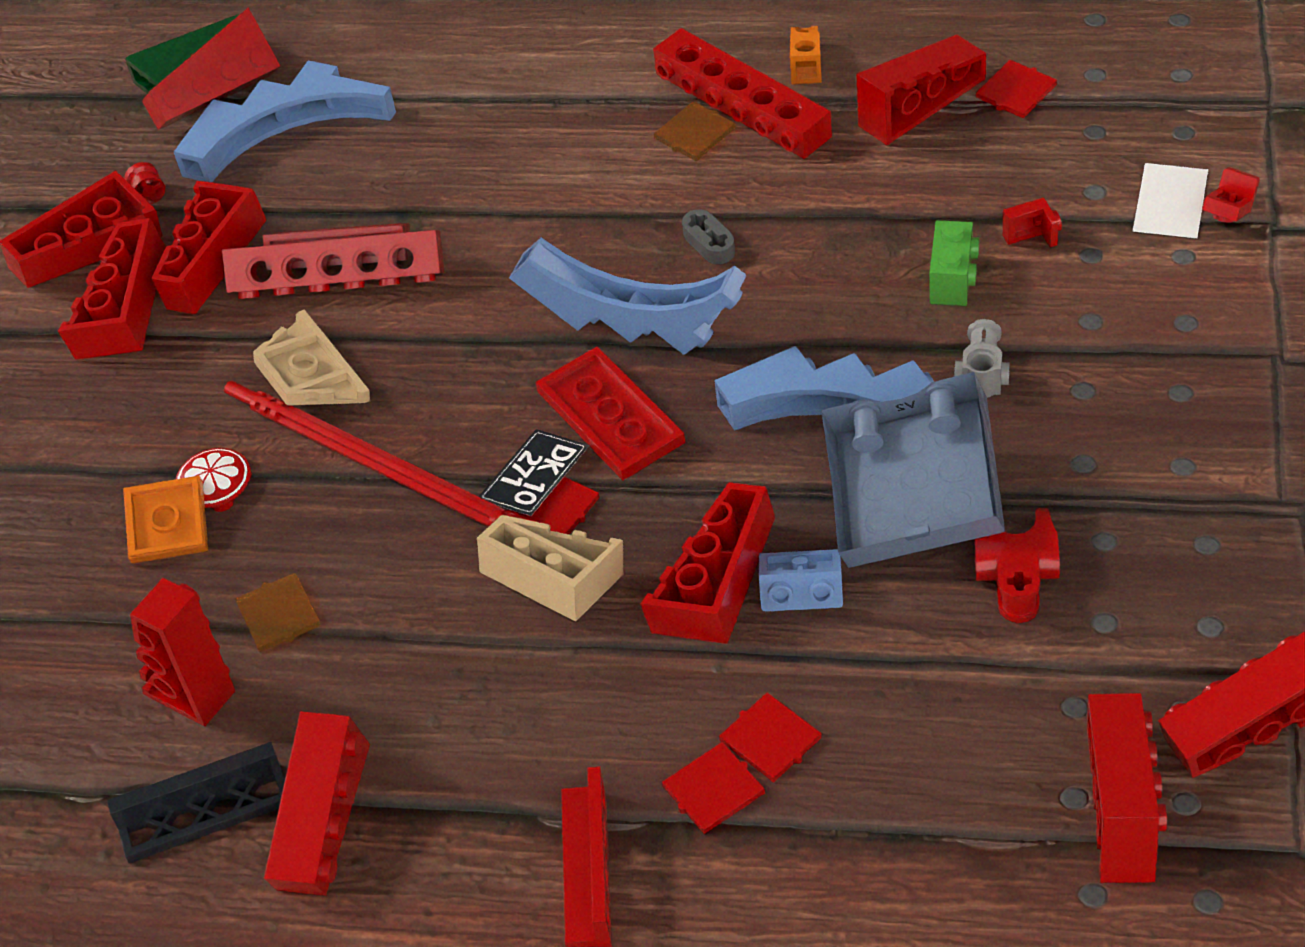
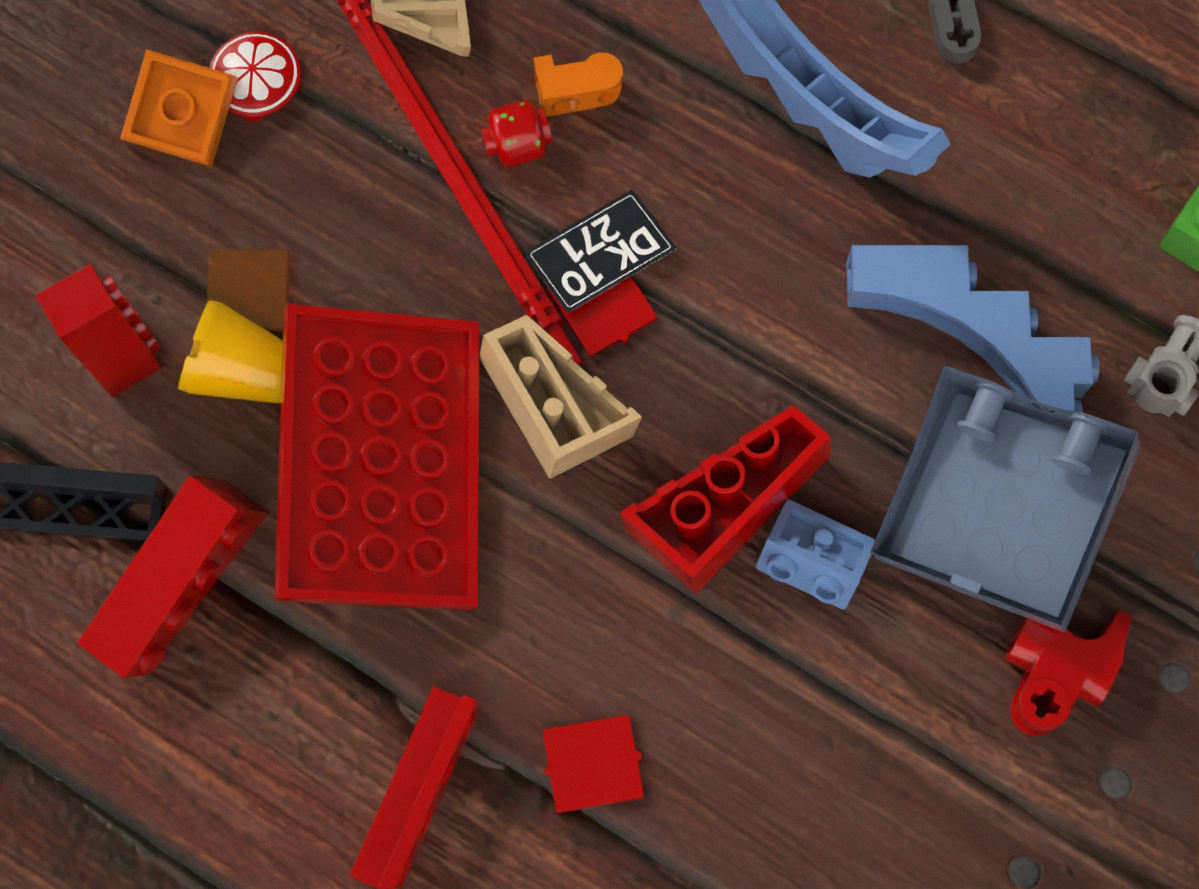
camera: 20 degrees right, 25 degrees up
(302, 644) = (233, 358): none -> yellow cone
(432, 427) = (516, 133): none -> red head
(440, 658) = (378, 460): none -> red plate
(459, 381) = (577, 84): none -> orange leg
(610, 413) = (720, 217): red plate -> none
(770, 737) = (683, 733): red piece -> none

